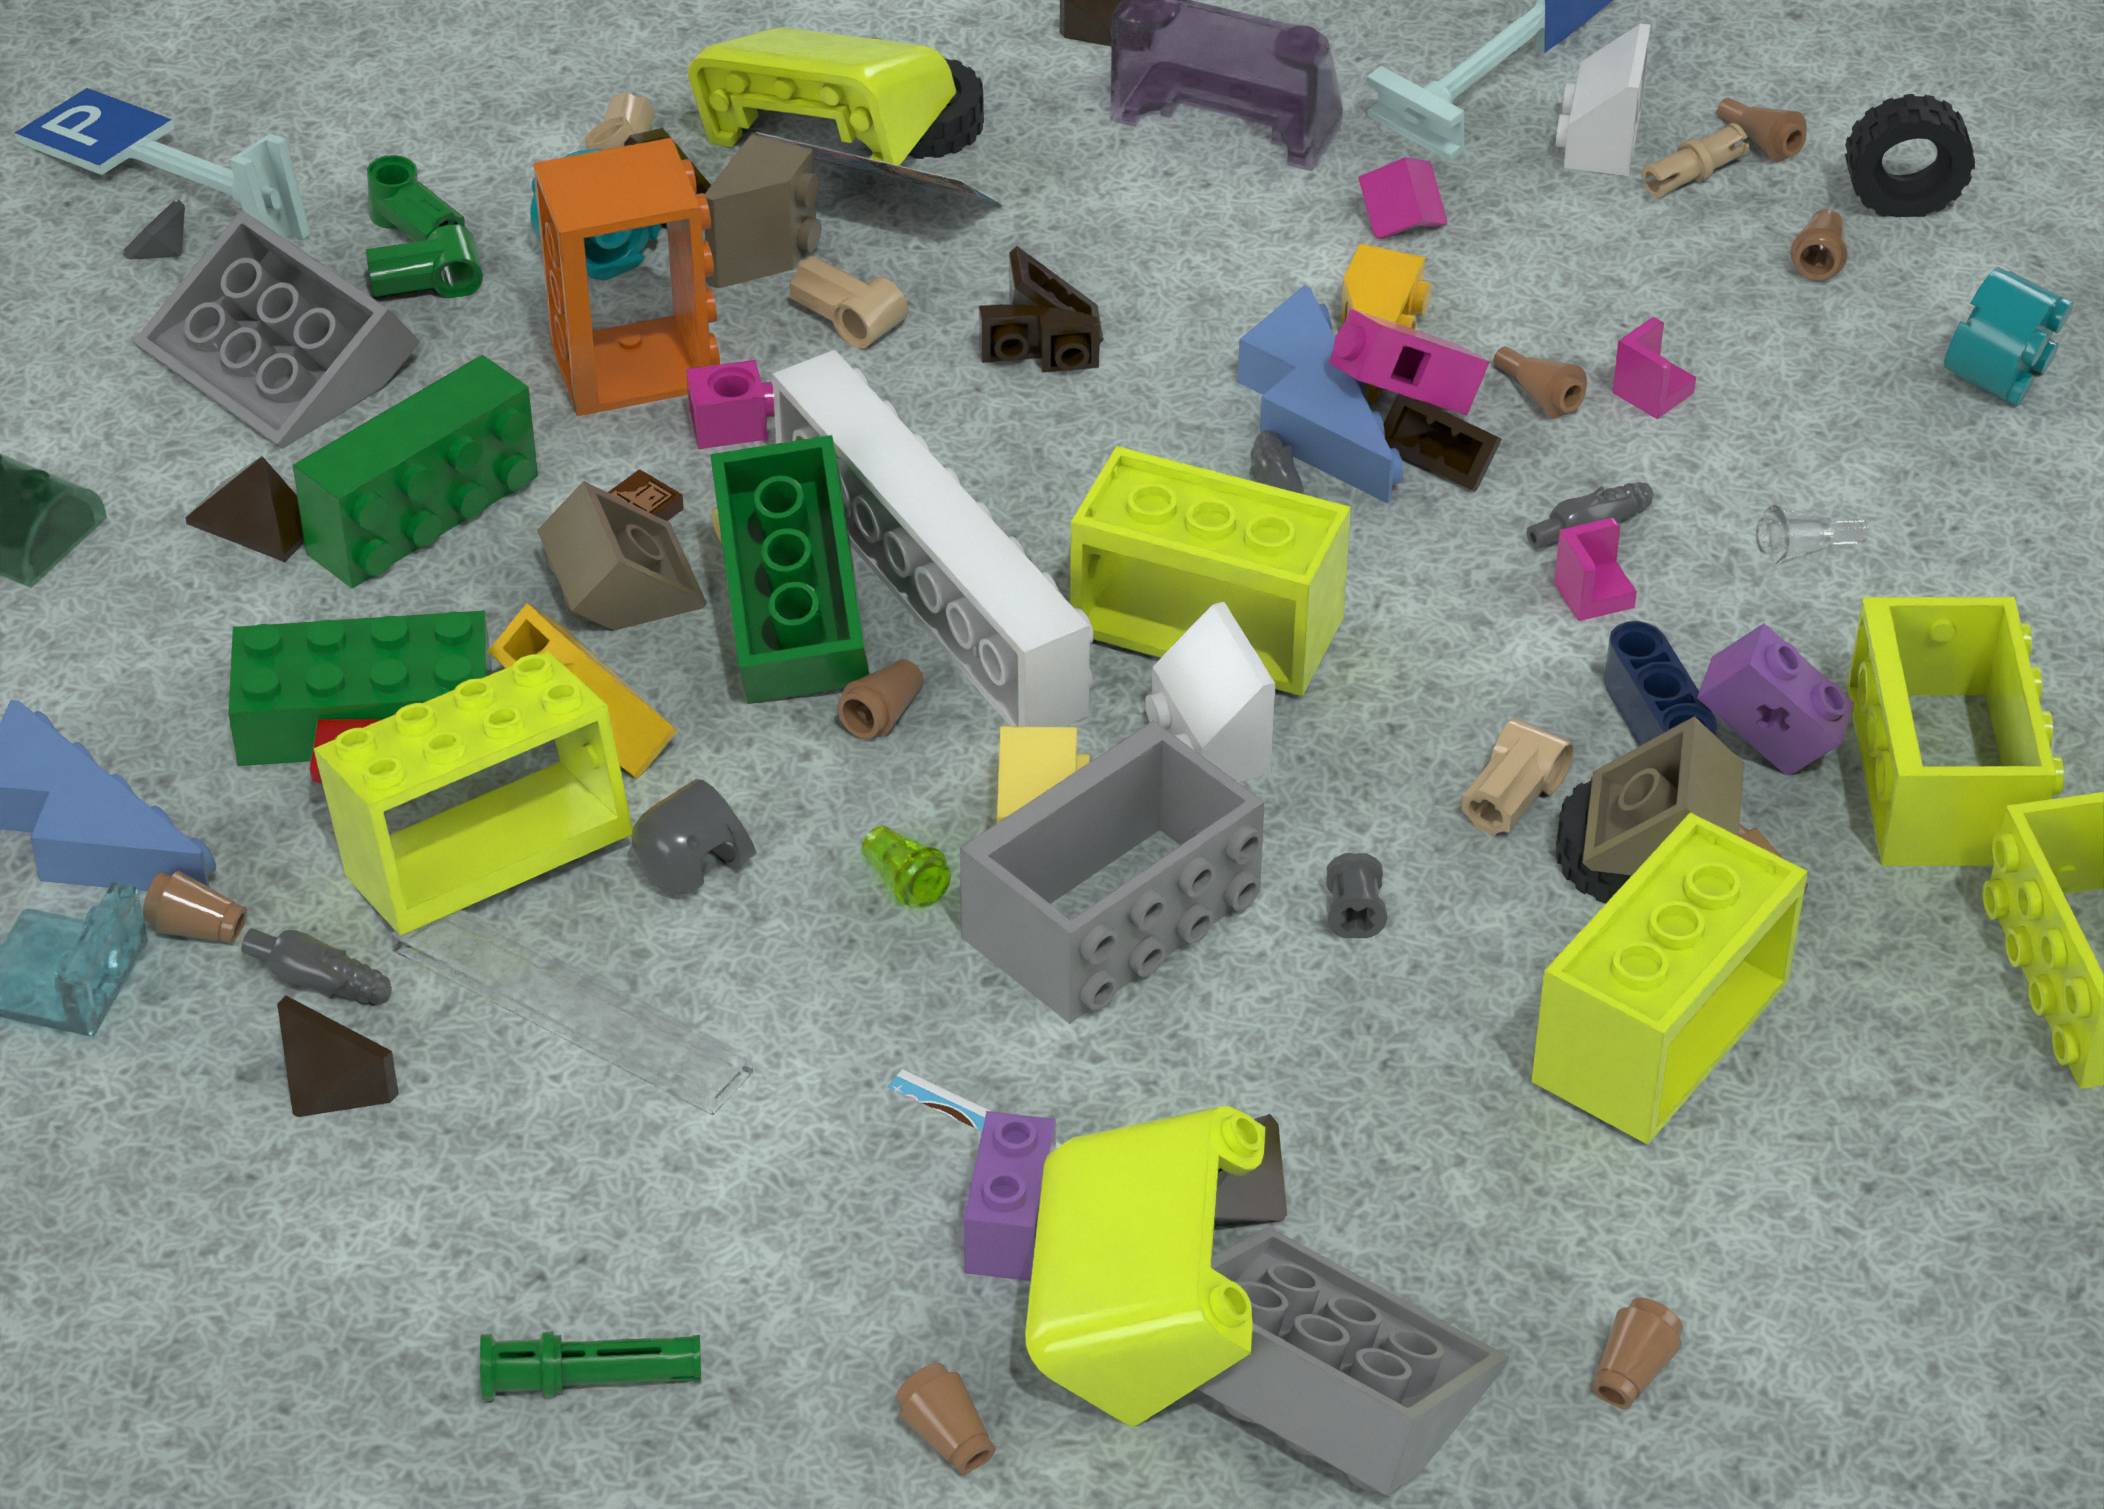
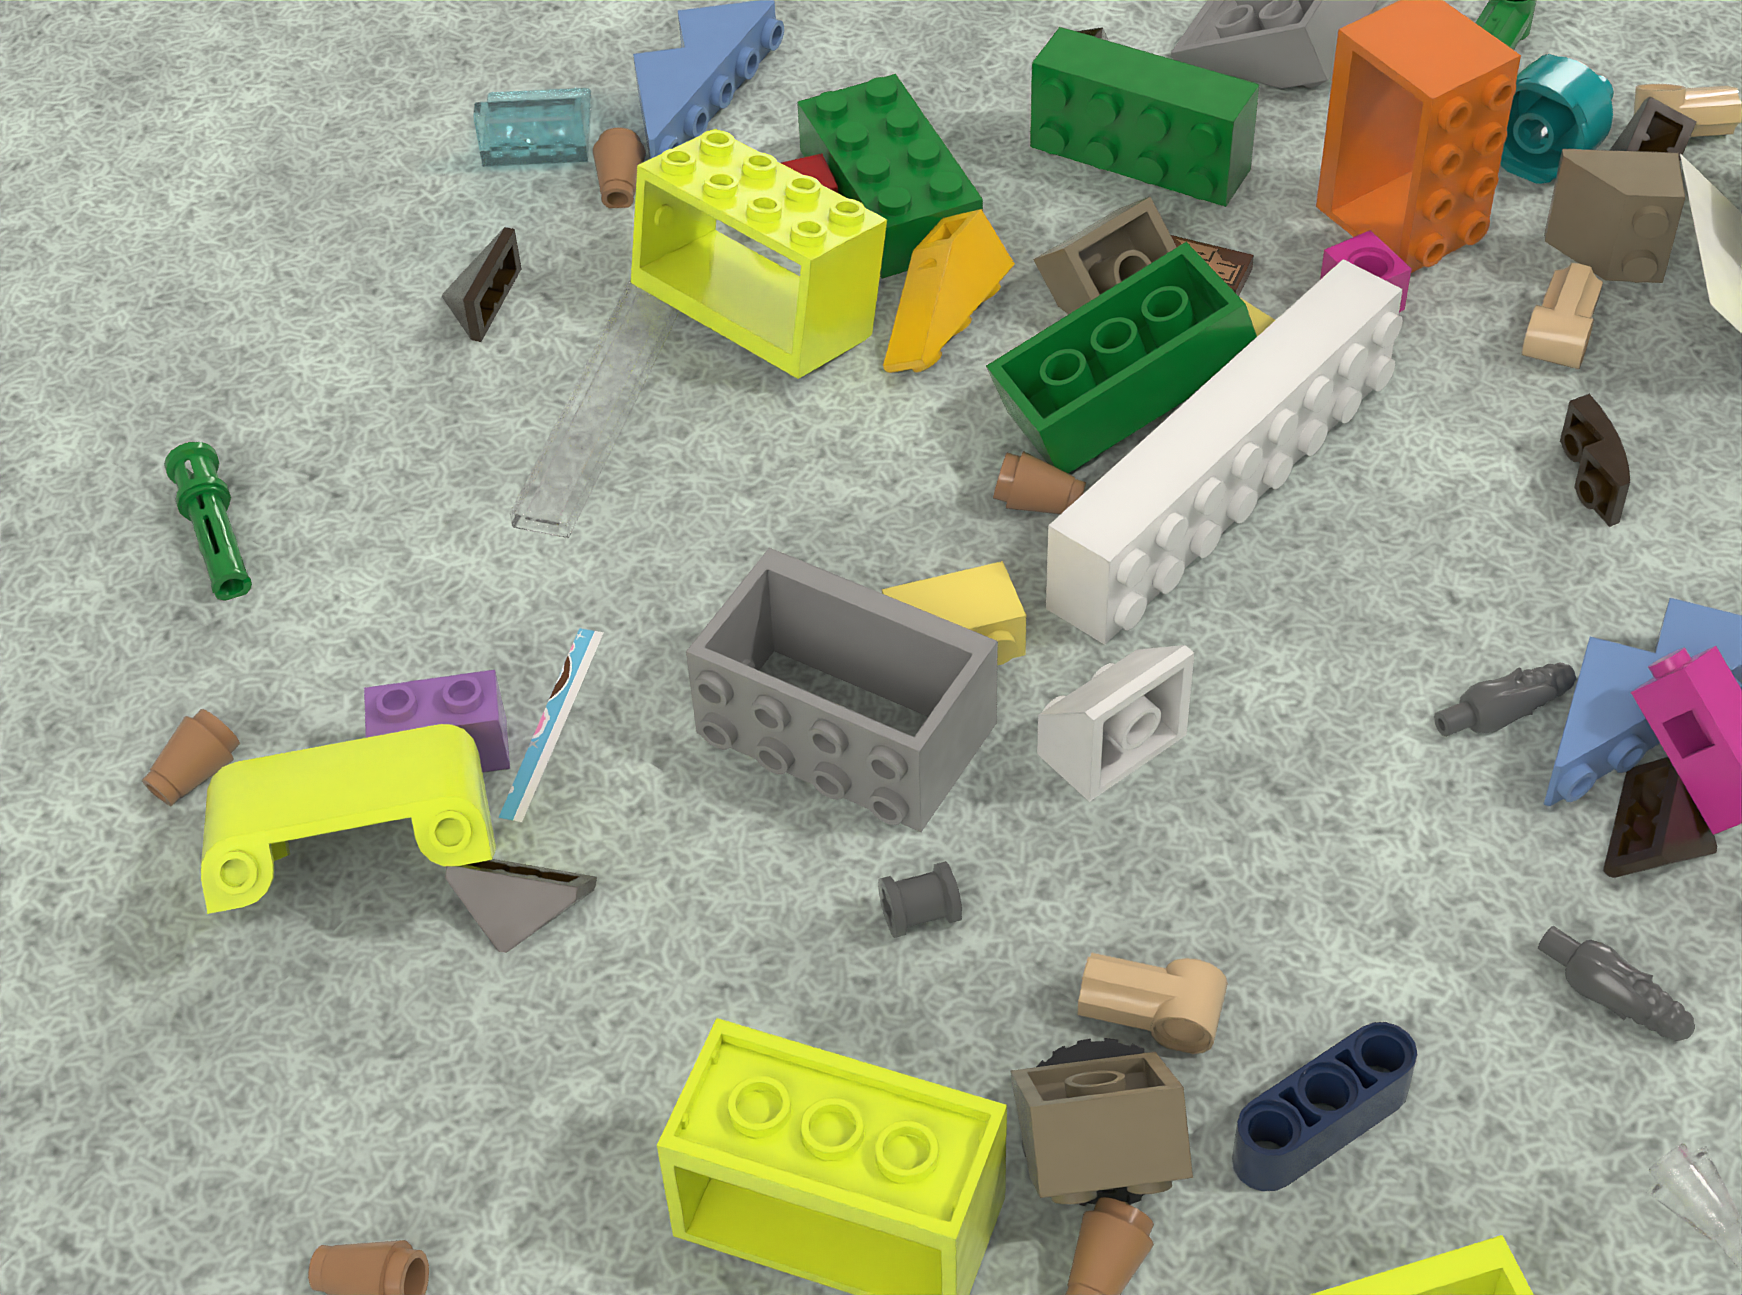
camera: 75 degrees right, 5 degrees up
(316, 965) = (585, 251): dark grey piece -> none
(680, 832) = (789, 396): dark grey helmet -> none
(907, 866) = (838, 550): clear neon green cone -> none
(1037, 285) = (1654, 449): dark brown slope -> none
(1175, 538) = (1275, 650): neon yellow hose -> none
(1346, 1364) = (315, 1014): light grey slope -> none
(1589, 570) = (1508, 998): dark pink panel -> none
(1776, 700) = (1344, 1201): medium lavender brick -> none

